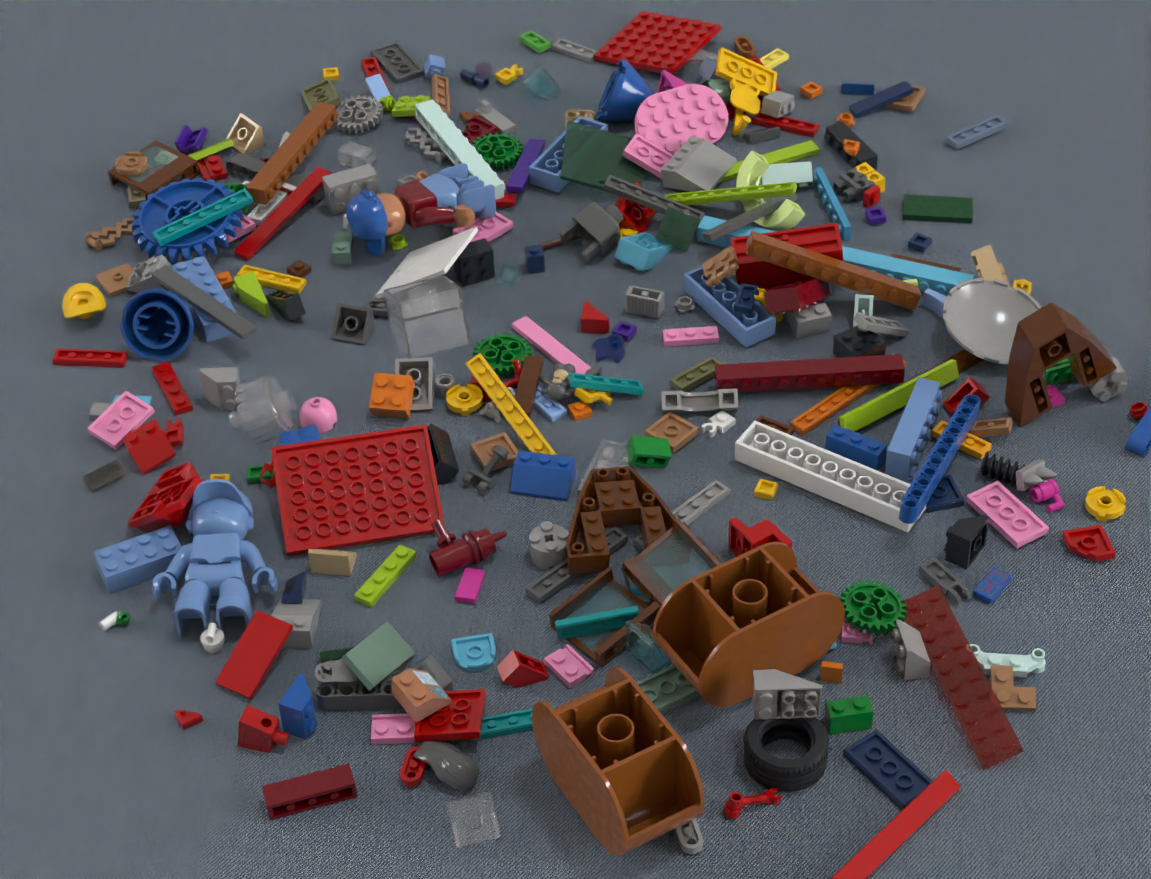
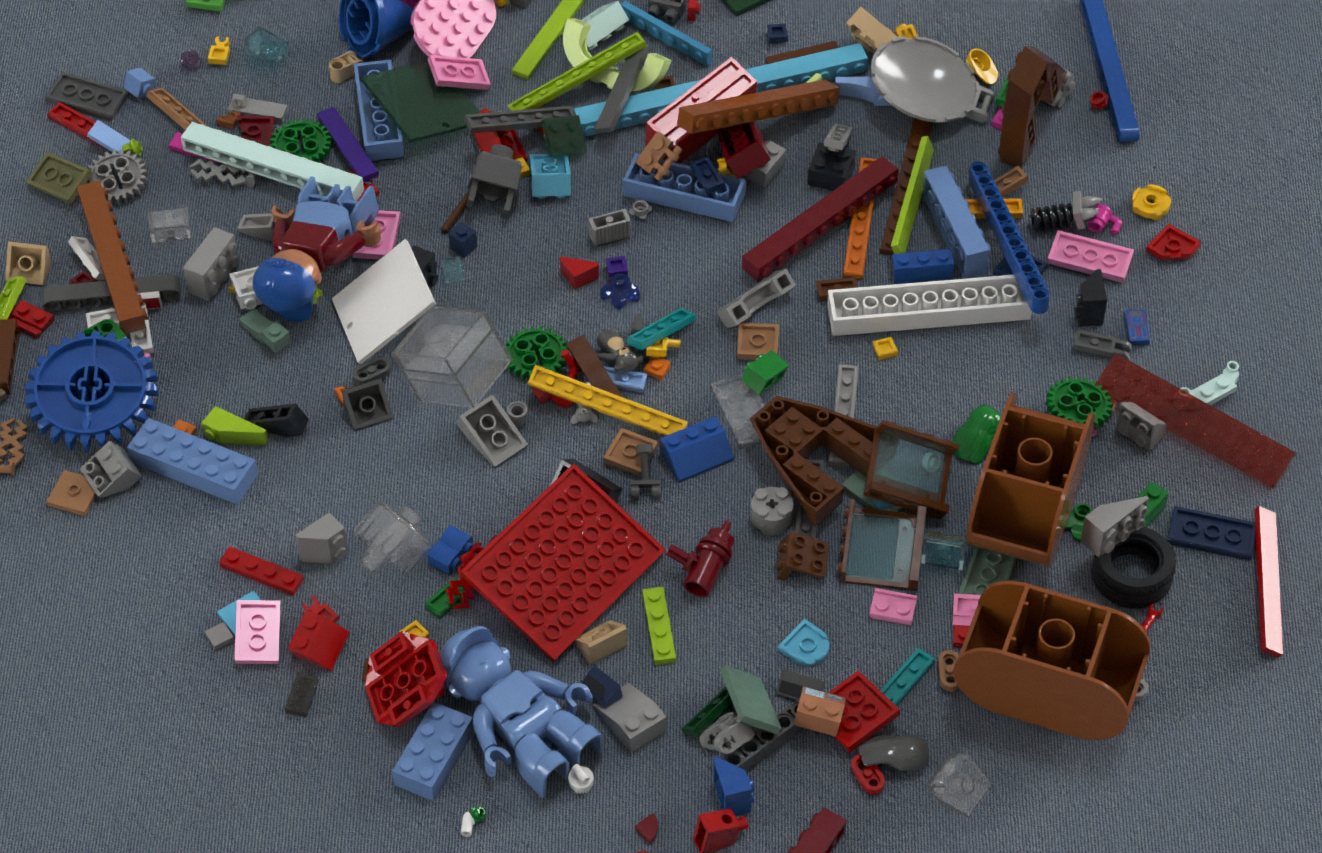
camera: 40 degrees left, 10 degrees up
(82, 301) = (74, 537): yellow hat -> none
(90, 358) = (143, 589): red tile -> none
(157, 324) = (197, 515): blue cone -> none
(202, 217) = (117, 378): teal tile -> none
(204, 302) = (212, 466): dark grey tile -> none
(221, 701) = (648, 828): none -> dark red tile
(254, 655) = (639, 768): red tile -> none
(275, 279) = (229, 402): yellow tile -> none
(281, 214) = (169, 327): red tile -> none
(299, 269) = (244, 377): reddish brown plate -> none
(318, 413) = (436, 512): bright pink cylinder -> none
(331, 73) = (32, 146): yellow tile -> none
(391, 395) = (488, 453): orange brick -> none
(392, 729) = (813, 754): bright pink plate -> none
(406, 105) = (161, 139): lime plate -> none
(457, 399) = (551, 426): yellow plate -> none
(470, 585) = (739, 588): dark pink tile -> none
(474, 78) = (189, 73): dark blue pin -> none
(521, 670) = (865, 635): red slope -> none
(536, 589) = (802, 555): none -> reddish brown bracket
(548, 344) = (566, 320): bright pink tile -> none
(595, 622) = (894, 544): teal tile -> none
(690, 336) = (676, 238): bright pink plate -> none
(695, 375) = (722, 273): olive plate -> none
(696, 166) = (512, 60): light grey slope -> none
(719, 422) = (786, 309): white plate -> none
(745, 539) = (946, 397): red bracket -> none
(831, 672) = (1097, 479): orange tile -> none
(863, 305) = (801, 132): light aqua slope -> none
(875, 215) = (714, 25): dark purple plate -> none
(969, 387) = (960, 164): red slope -> none
(1008, 696) = (1245, 413): medium nougat plate -> none

